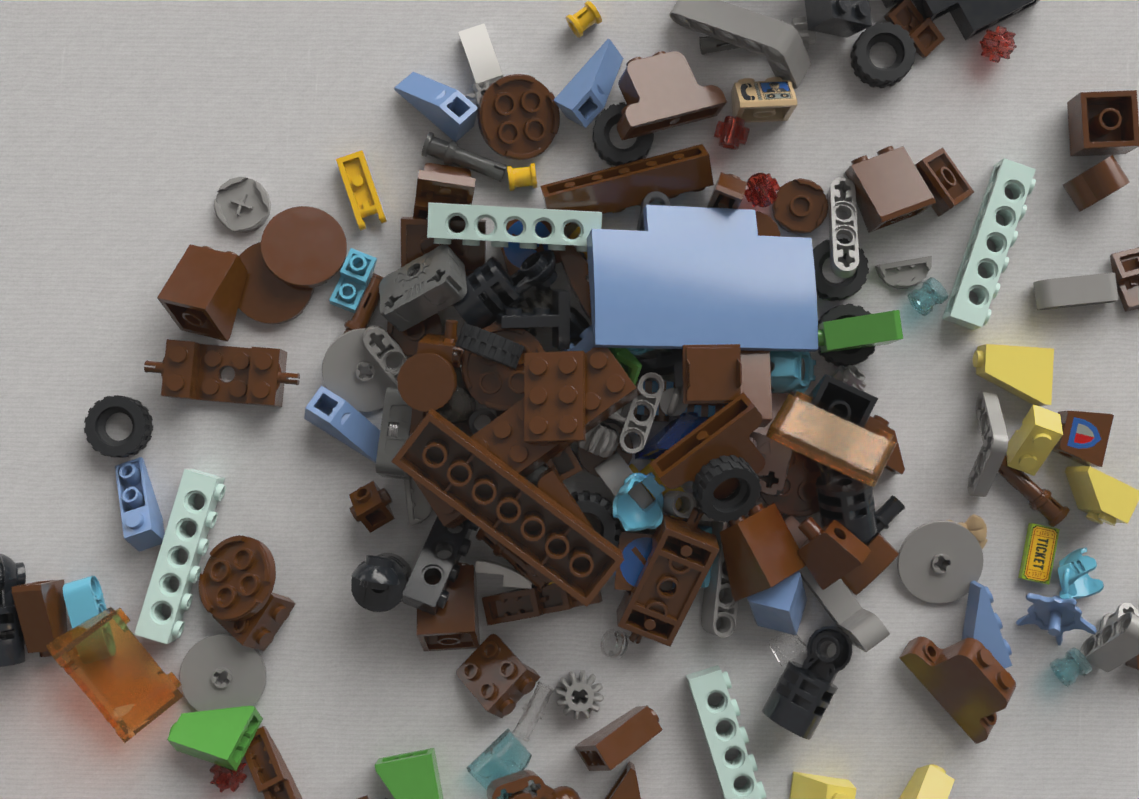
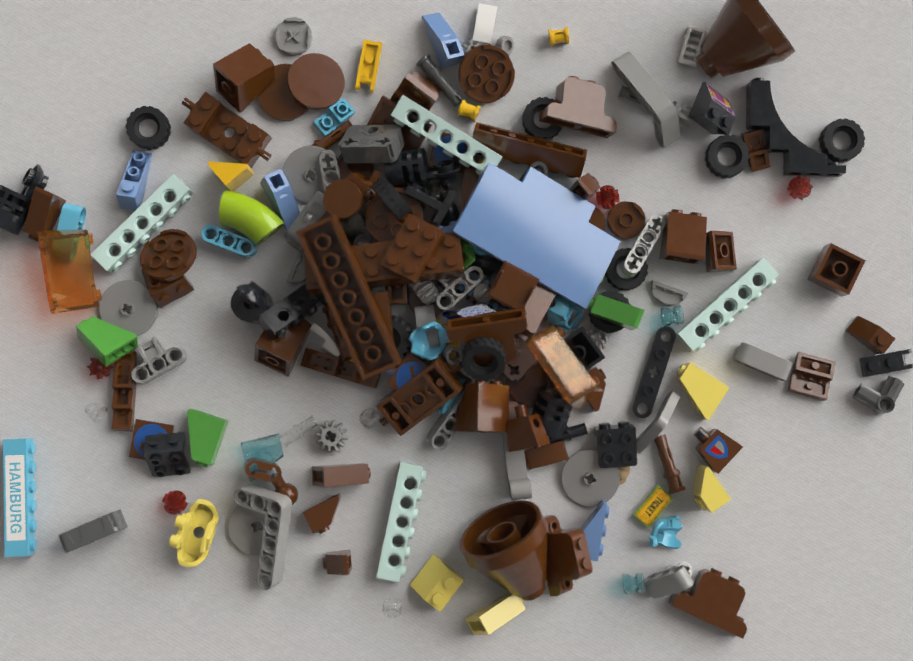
camera: 30 degrees right, 0 degrees up
(261, 428) = (231, 174): none -> yellow slope
(288, 723) = (151, 354): none -> light grey piece
(293, 516) = (220, 239): none -> medium azure beam
(313, 470) = (248, 216): none -> lime brick
(371, 506) = (270, 256): reddish brown brick -> none
(497, 676) = (289, 398): reddish brown bracket -> none
(521, 64) = (505, 43): none -> light grey tile
(590, 87) = (540, 79): medium blue slope -> none
(731, 132) = (609, 153): clear red gear -> none
(763, 100) = (638, 143): tan slope -> none
(781, 605) = (480, 448): medium blue slope -> none
(787, 647) = (471, 477): clear slope -> none
(808, 688) = (466, 508): black cylinder -> none
(892, 713) = (510, 548): none -> reddish brown cone
(947, 402) = (657, 358): none -> black piece
(950, 501) = (616, 444): none -> black bracket
(1034, 440) = (686, 435): light yellow brick -> none
(1055, 615) = (640, 547): medium blue piece -> none
(1096, 183) = (812, 303): reddish brown piece -> none

